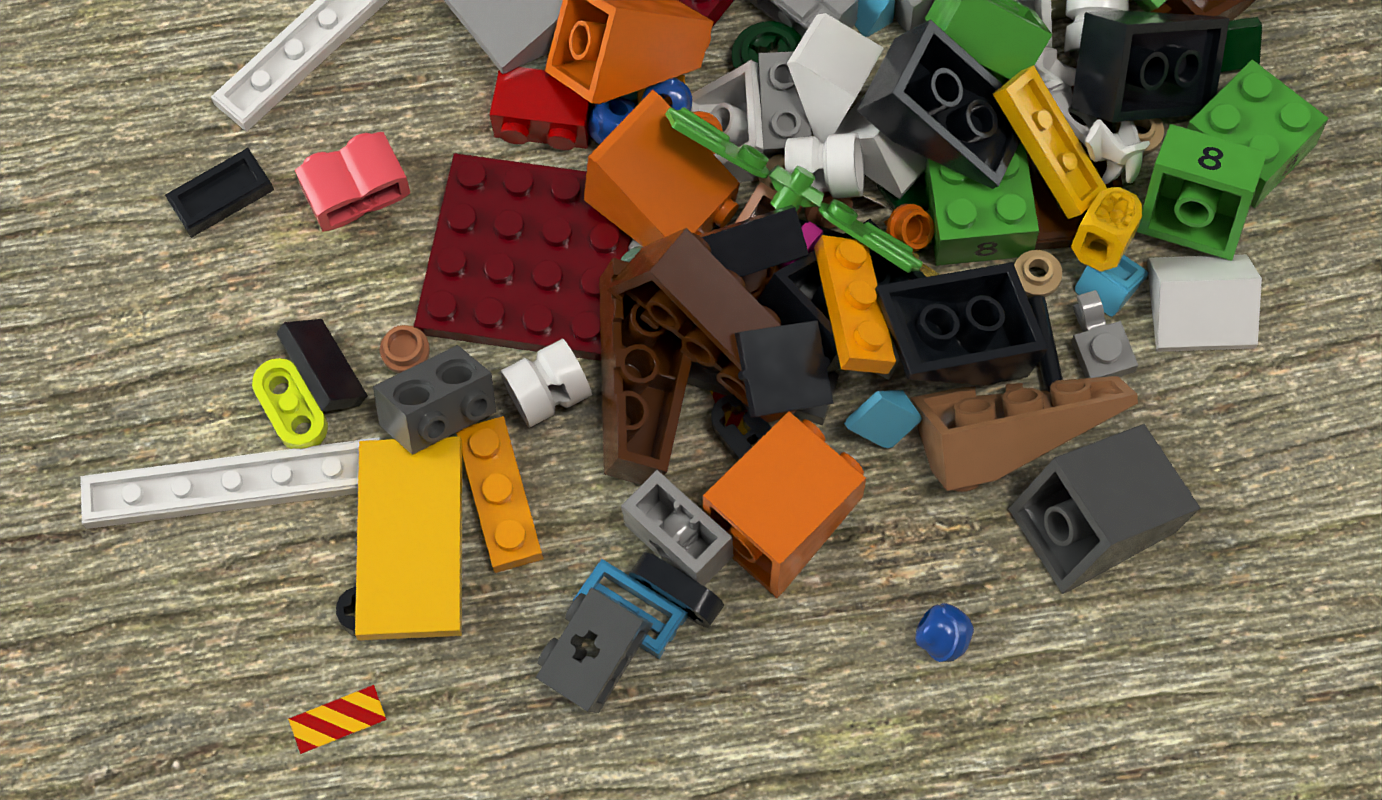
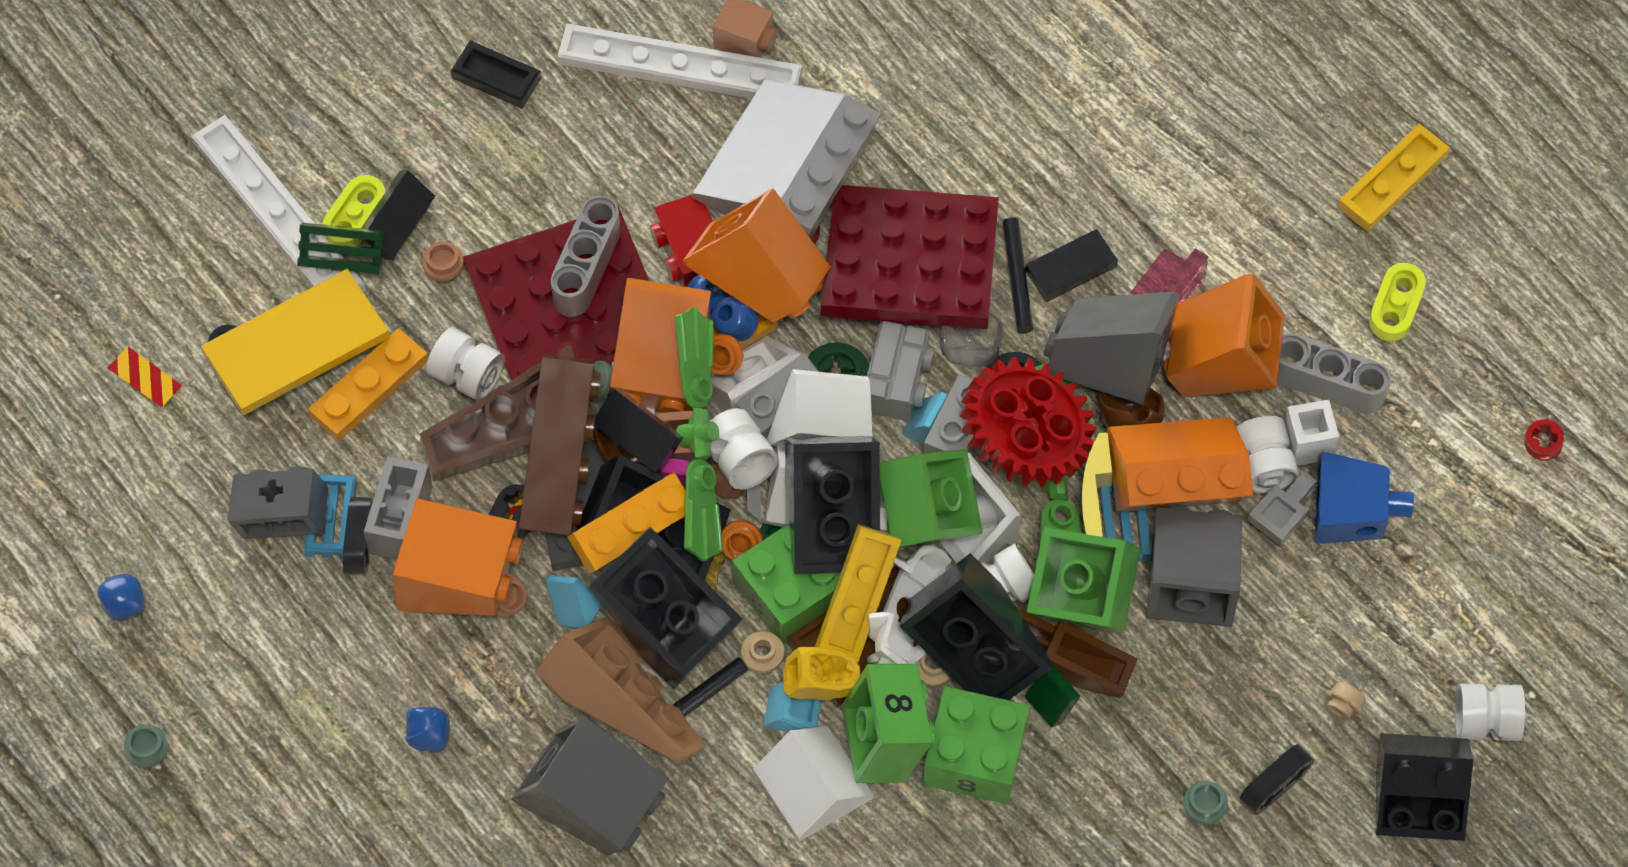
camera: 55 degrees right, 5 degrees down
(344, 448) = (306, 245): none -> dark green tile
(352, 180) = (553, 152): coral brick -> none
(435, 399) = (405, 297): dark grey brick -> none
(500, 182) = (583, 239): none -> light grey beam
(784, 368) = (546, 500): black piece -> none
(1101, 347) = (729, 729): light grey plate -> none

